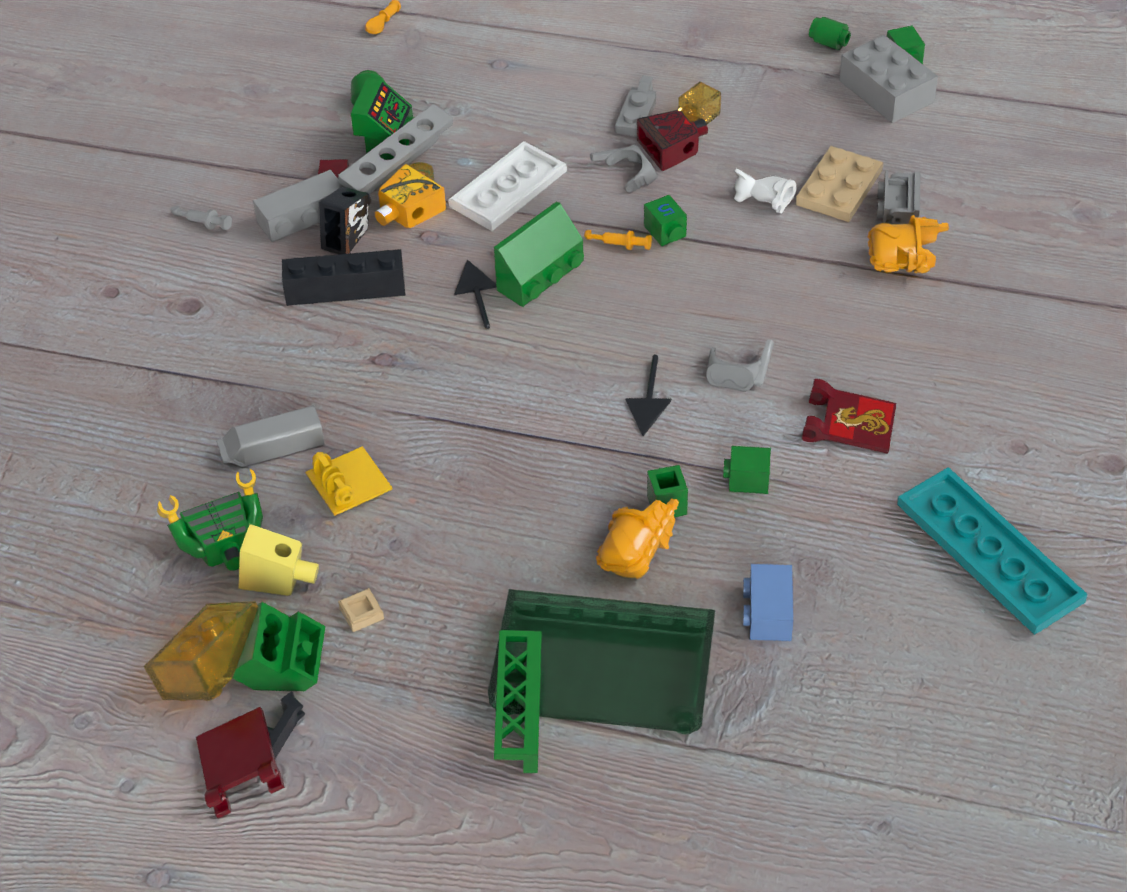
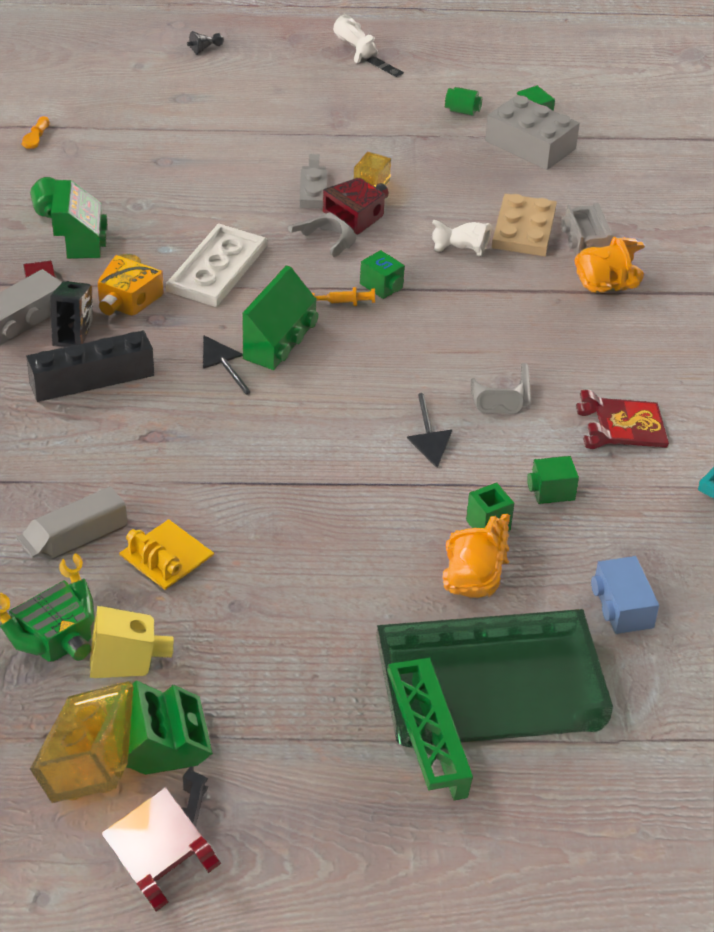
camera: 20 degrees left, 5 degrees down
(361, 610) = (227, 675): tan tile -> none
(385, 169) = (133, 215): light grey piece -> none

